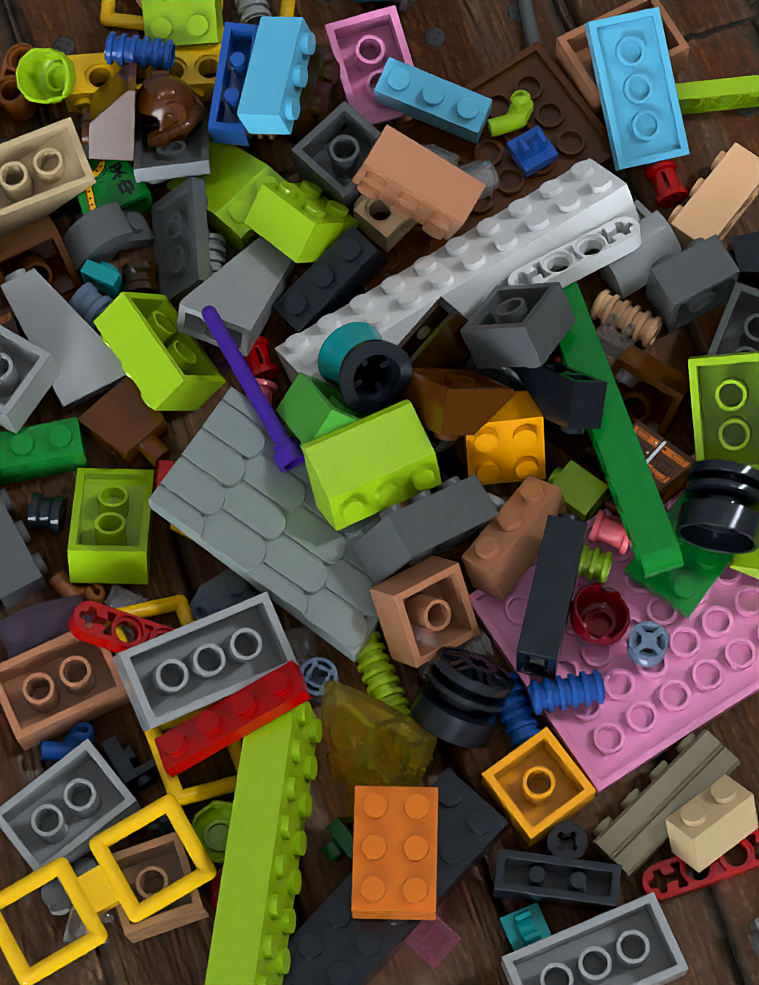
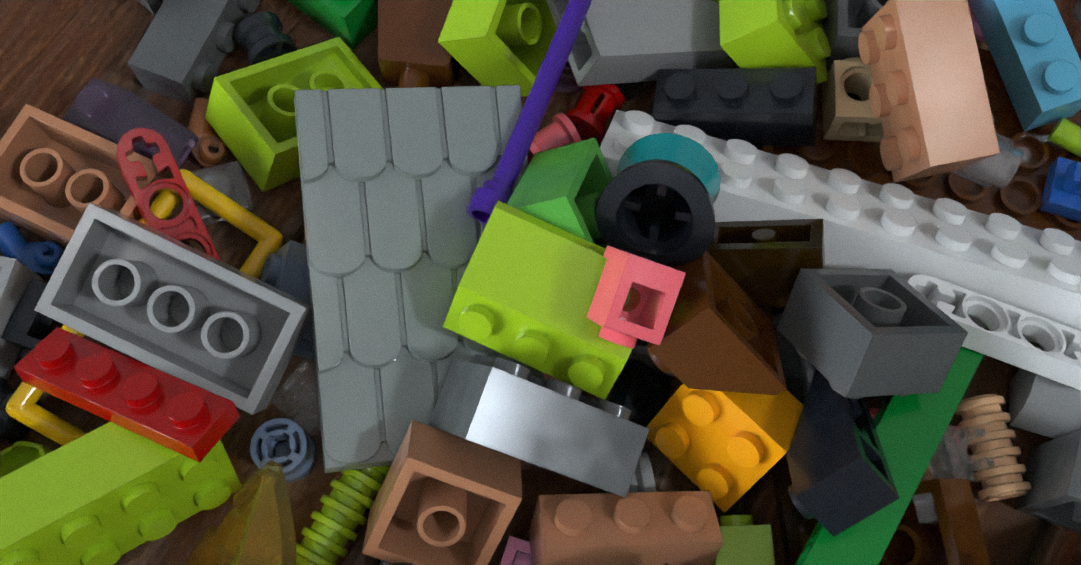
camera: 45 degrees right, 0 degrees up
(411, 420) = (651, 302): none -> coral brick

